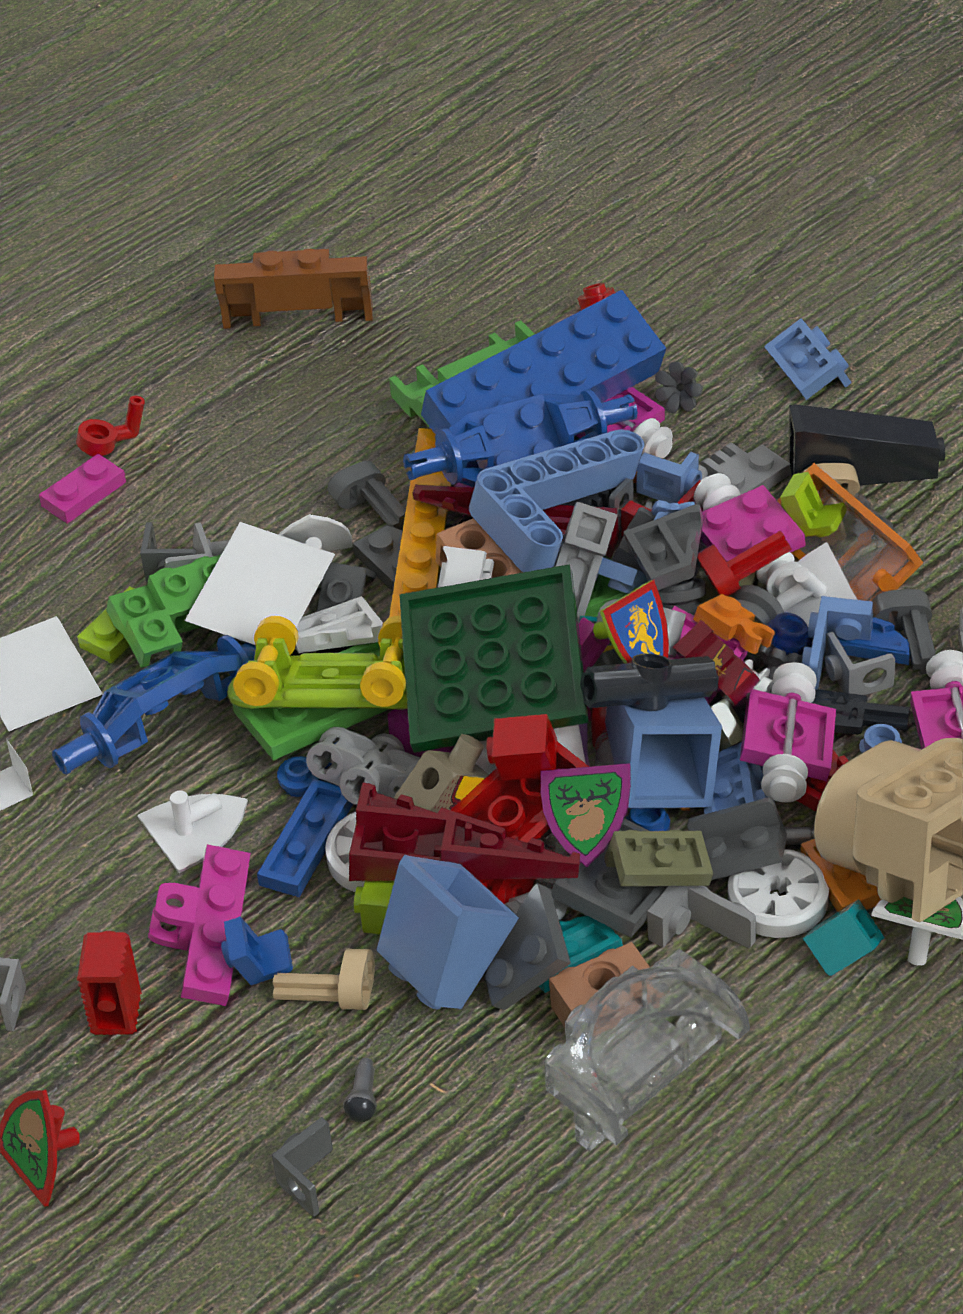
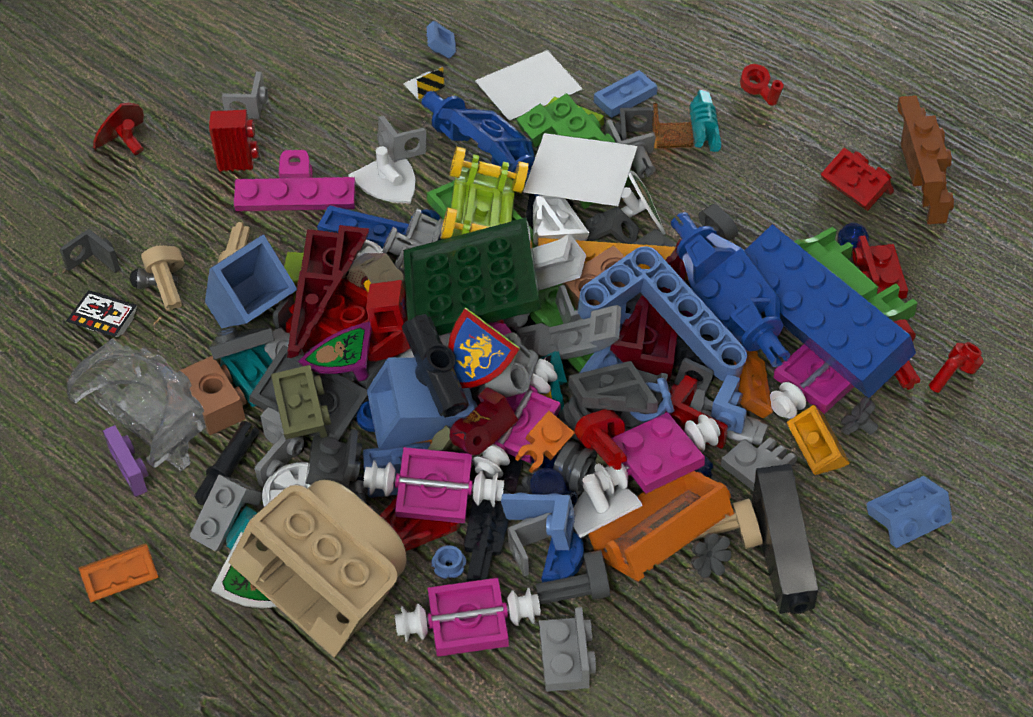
camera: 85 degrees right, 5 degrees up
(82, 488) = (698, 77): dark pink plate -> none
(91, 563) = (625, 93): none -> medium blue plate
(130, 808) = (395, 142): none -> light grey bracket
(164, 488) = (705, 121): none -> teal hinge
(175, 522) = (671, 134): none -> clear orange bracket
(255, 956) = (259, 208): blue bracket -> none
(300, 360) = (857, 179): none -> red bracket
(345, 1066) = (163, 262): none -> tan piece
(394, 366) = (851, 233): none -> clear blue plate
(424, 1151) = (103, 314): none -> piece
(441, 352) = (880, 265): none -> red bracket
(706, 427) = (817, 441): none -> light orange slope
(717, 1084) = (122, 450): none -> medium lavender plate
(740, 978) = (227, 460): none -> black axle
(807, 510) = (682, 488): lime bracket -> none
(808, 963) = (221, 511): none -> light grey bracket
(907, 1076) = (118, 572): none -> orange plate

